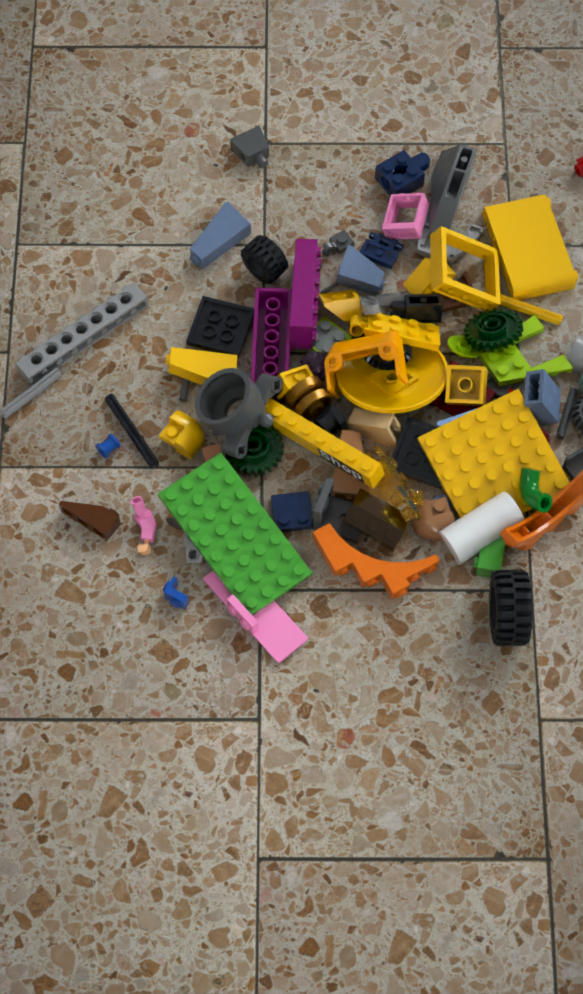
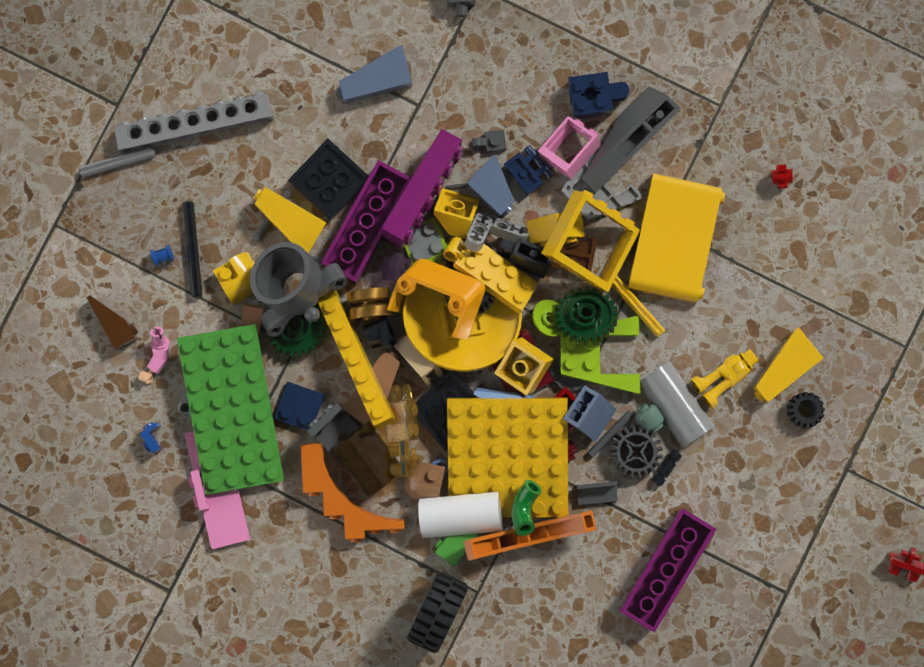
camera: 30 degrees right, 20 degrees up
(264, 259) = (403, 131): black tyre -> none
(292, 377) = (365, 278): yellow panel -> none

